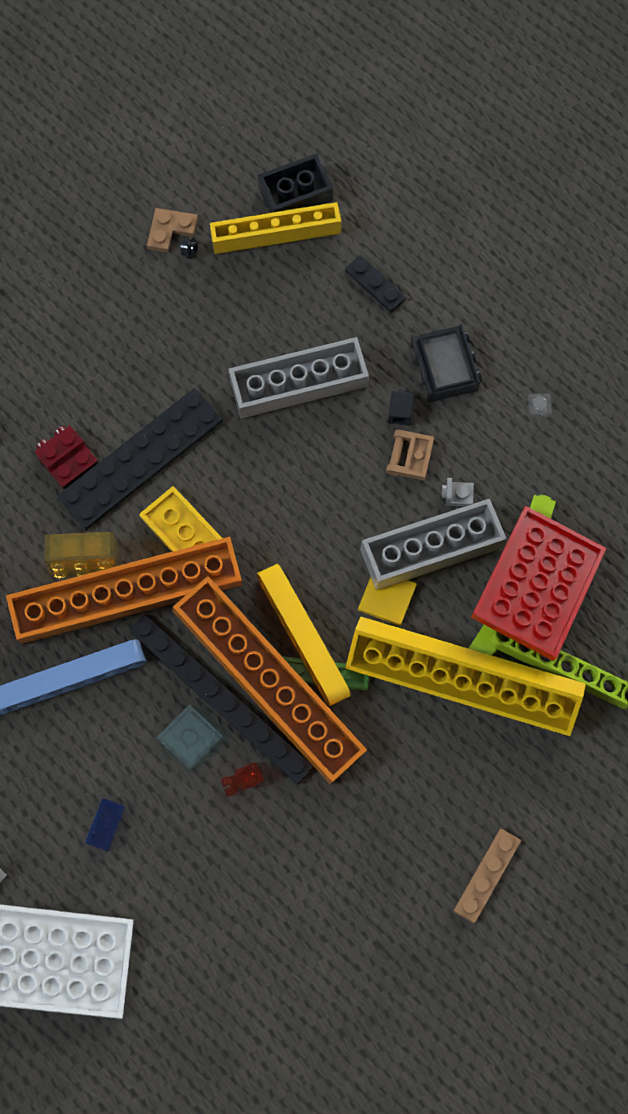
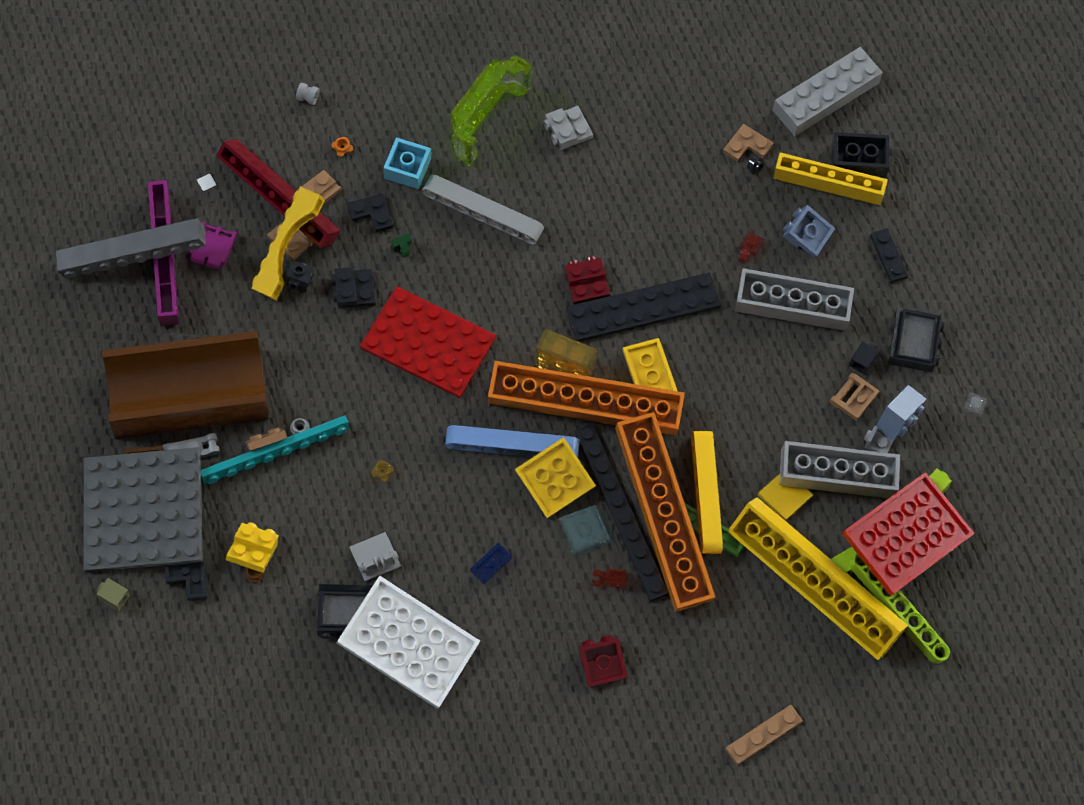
camera: 20 degrees right, 5 degrees down
(132, 695) = (555, 477): none -> yellow plate
(224, 338) = (750, 245): none -> clear red plate
(228, 134) = (827, 91): none -> light grey brick
(276, 877) = (602, 660): none -> dark red plate
(278, 295) = (808, 230): none -> sand blue plate
(470, 452) = (901, 413): none -> sand blue brick

